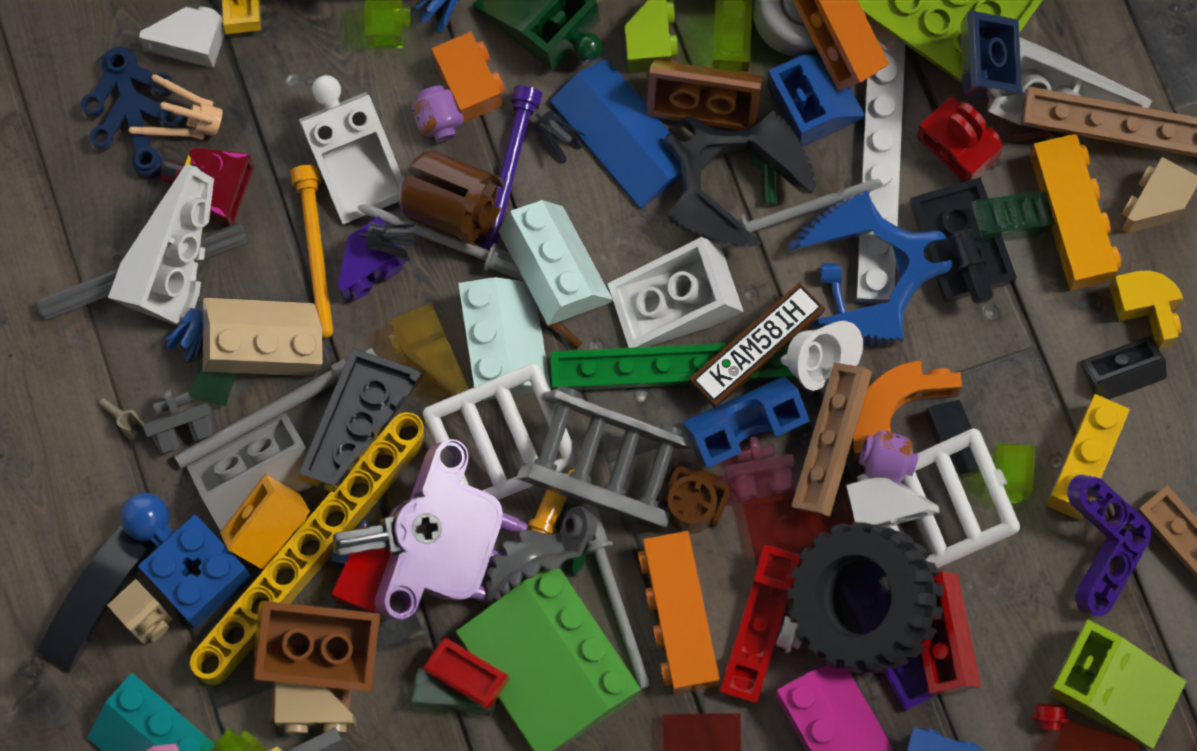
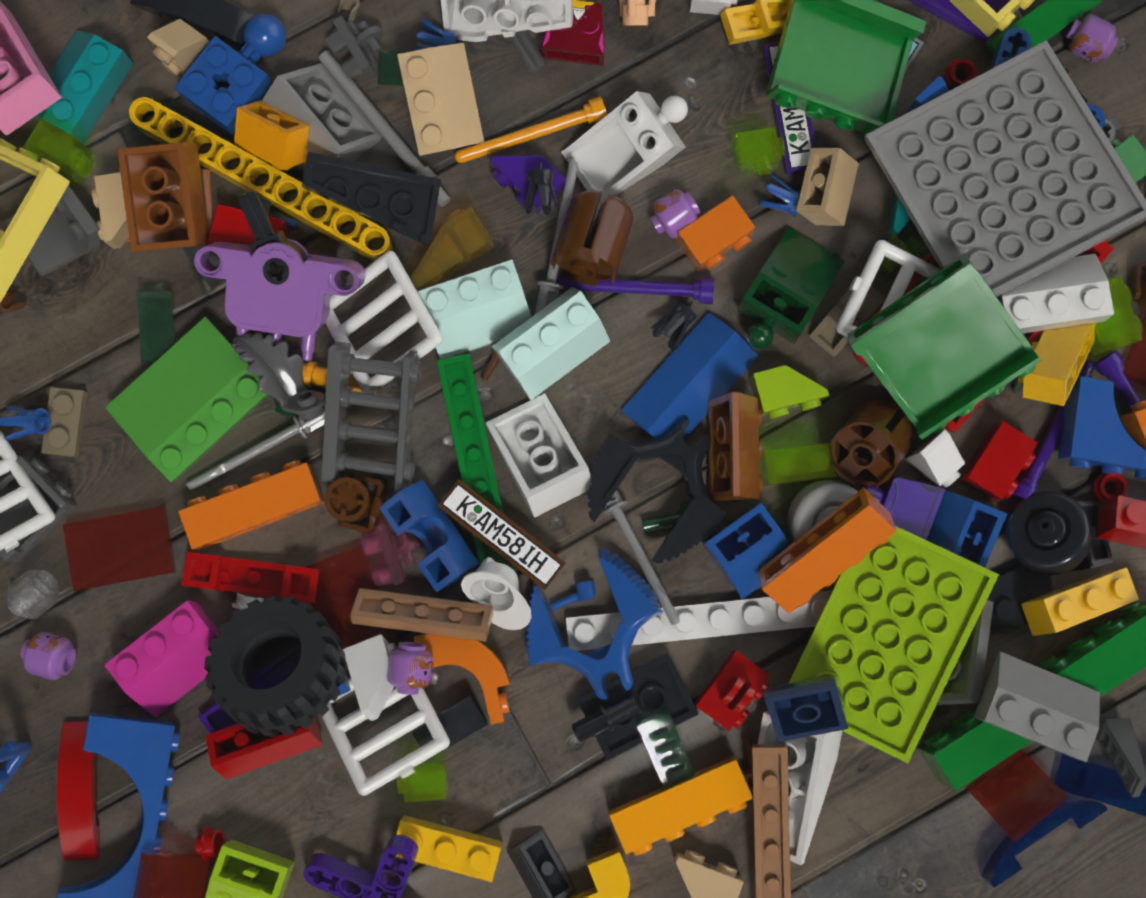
camera: 75 degrees right, 10 degrees up
(466, 673) = (166, 331): red tile -> none

